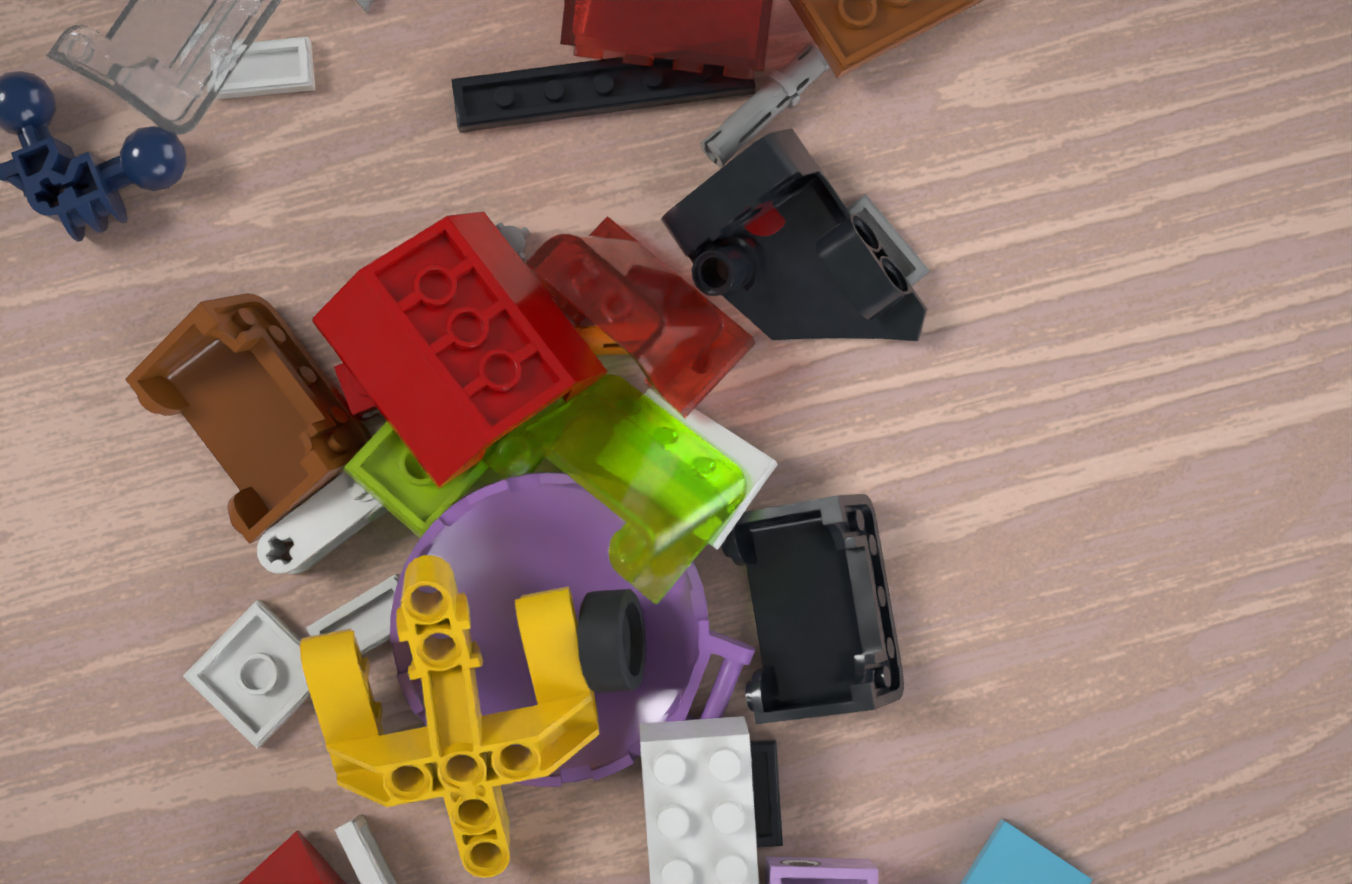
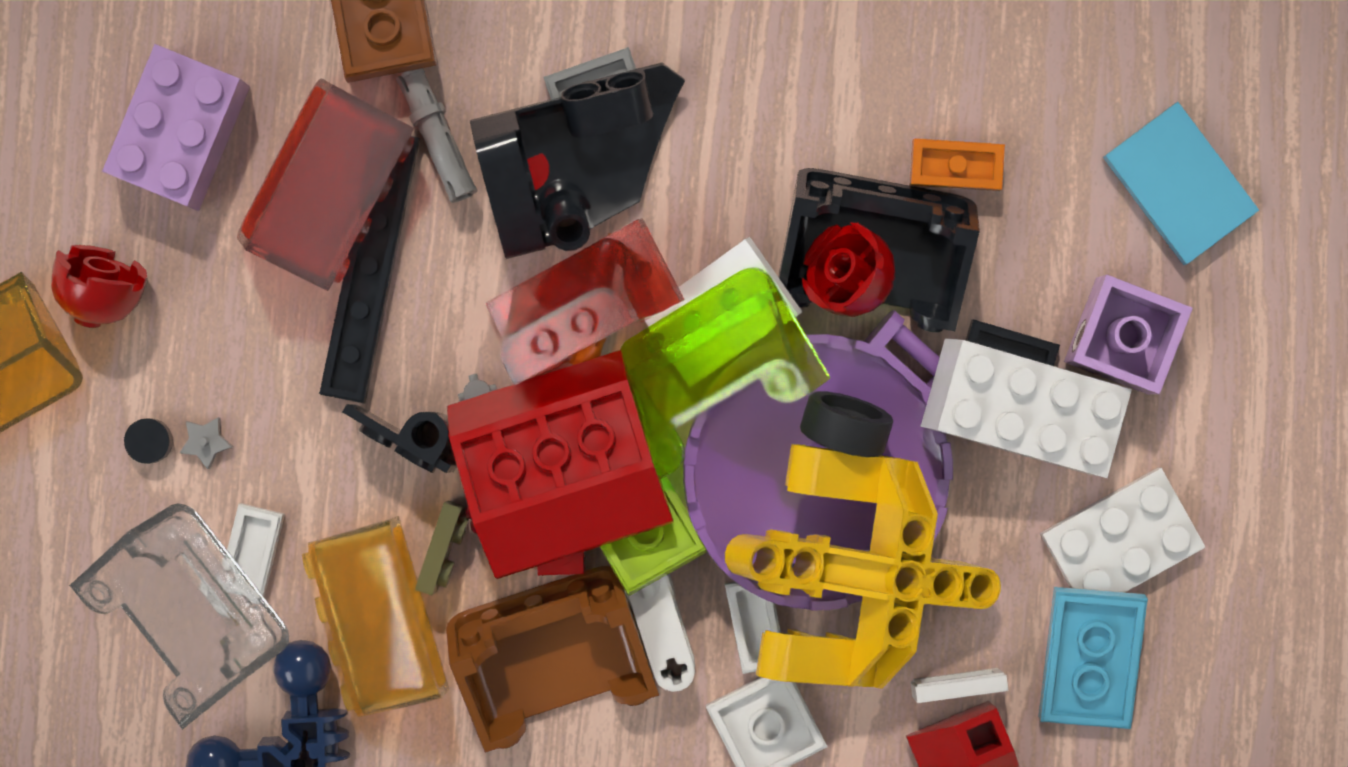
camera: 60 degrees left, 5 degrees up
(233, 217) = (375, 618): none -> clear yellow windscreen
(310, 260) = (436, 566): none -> olive plate
(435, 180) = (409, 438): none -> black piece
(779, 585) = (849, 270): none -> red cylinder
(935, 662) = (957, 164): none -> orange plate

